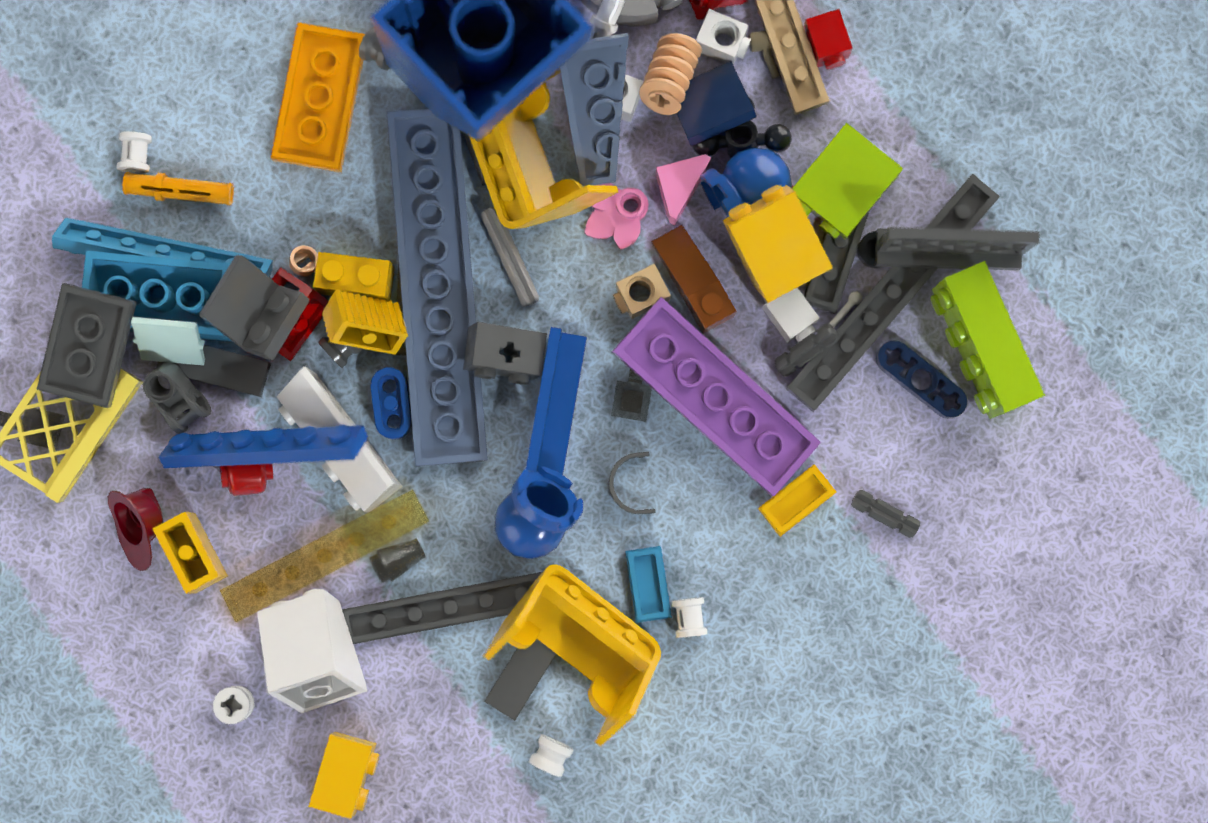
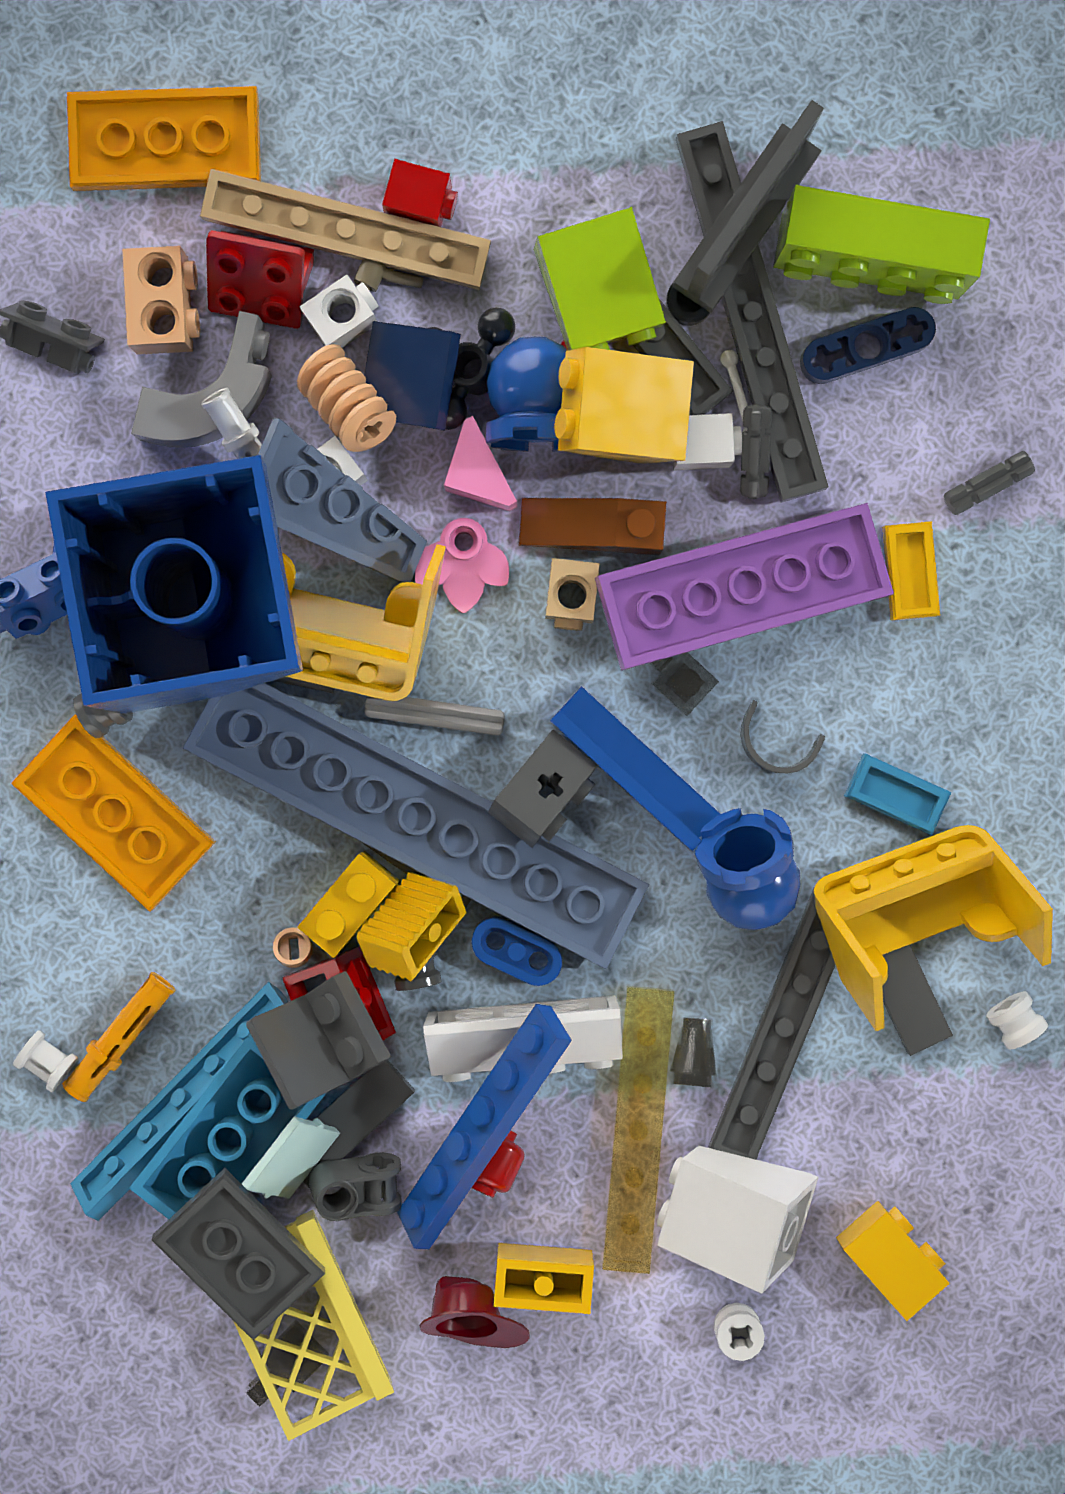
camera: 60 degrees left, 5 degrees up
(689, 617) = (964, 772): white bush -> none

